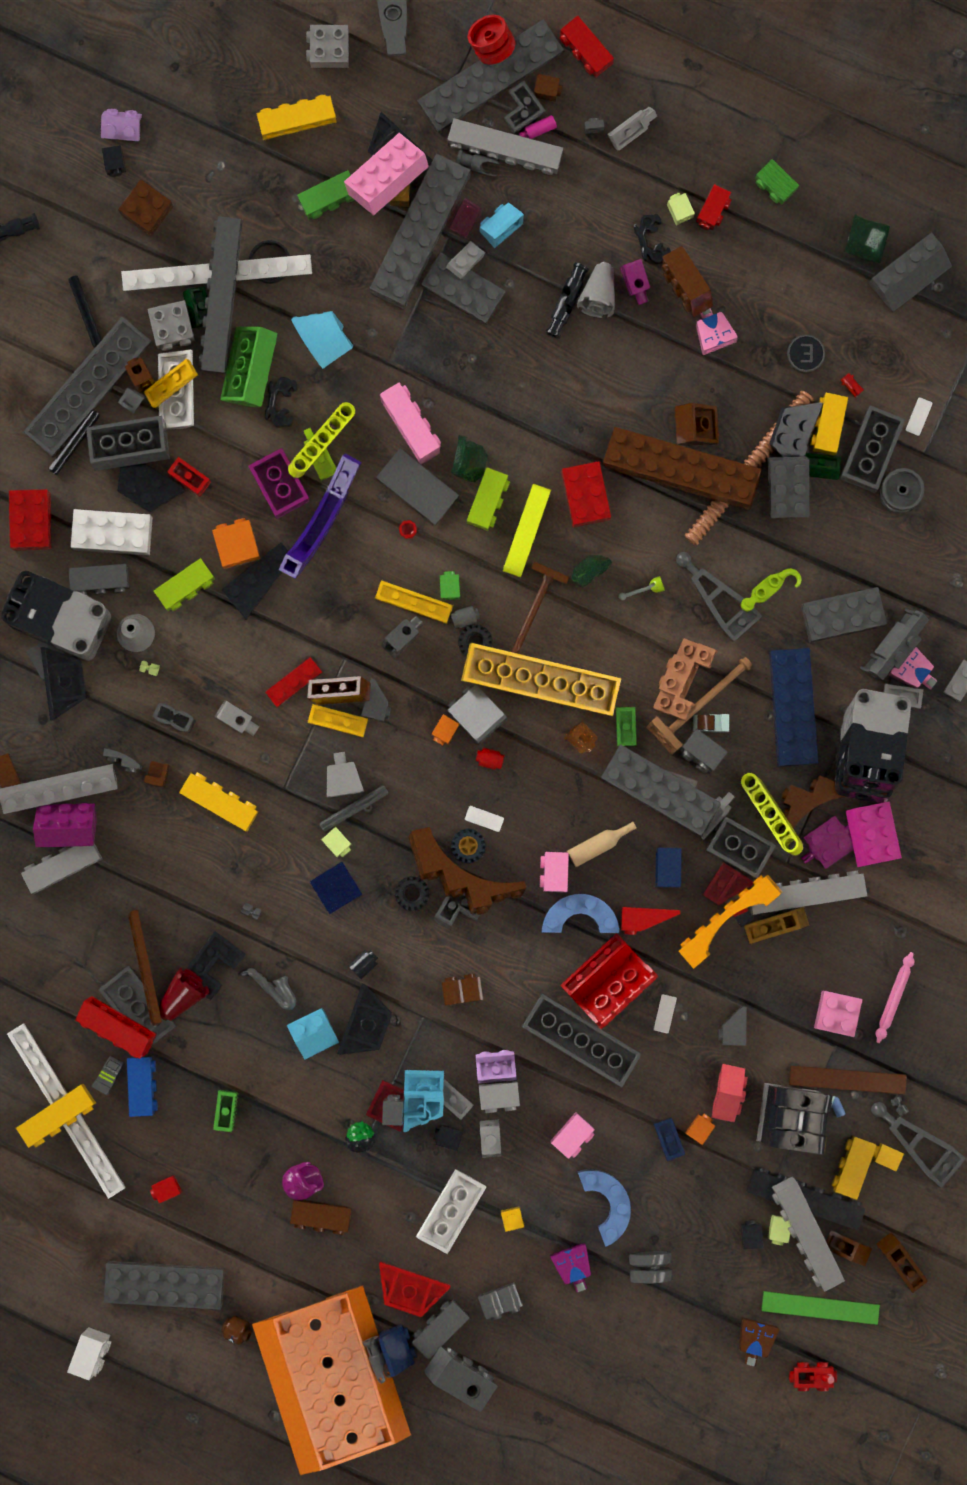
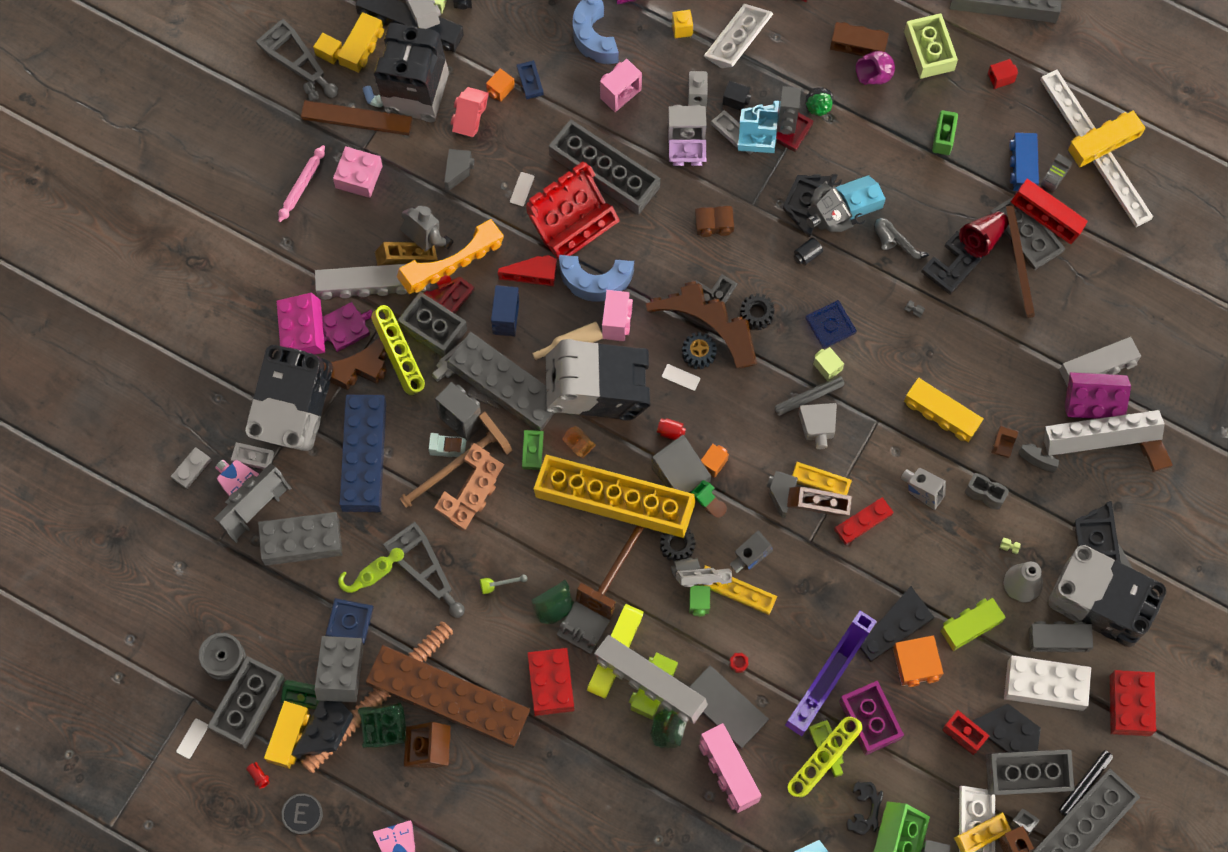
camera: 175 degrees left, 15 degrees down
(244, 1213) = (930, 45): none -> yellowish green brick
(343, 1008) = (829, 209): none -> dark grey torso
(445, 683) = (708, 500): none -> leg
(448, 606) = (703, 576): none -> light grey hinge
(491, 495) = (651, 679): none -> light grey brick
(560, 552) = (583, 627): none -> dark grey hinge
(568, 791) = (597, 380): none -> piece
(740, 438) = (383, 725): none -> clear green slope
(763, 951) = (423, 228): none -> dark grey torso
(785, 540) = (349, 619): none -> dark blue tile

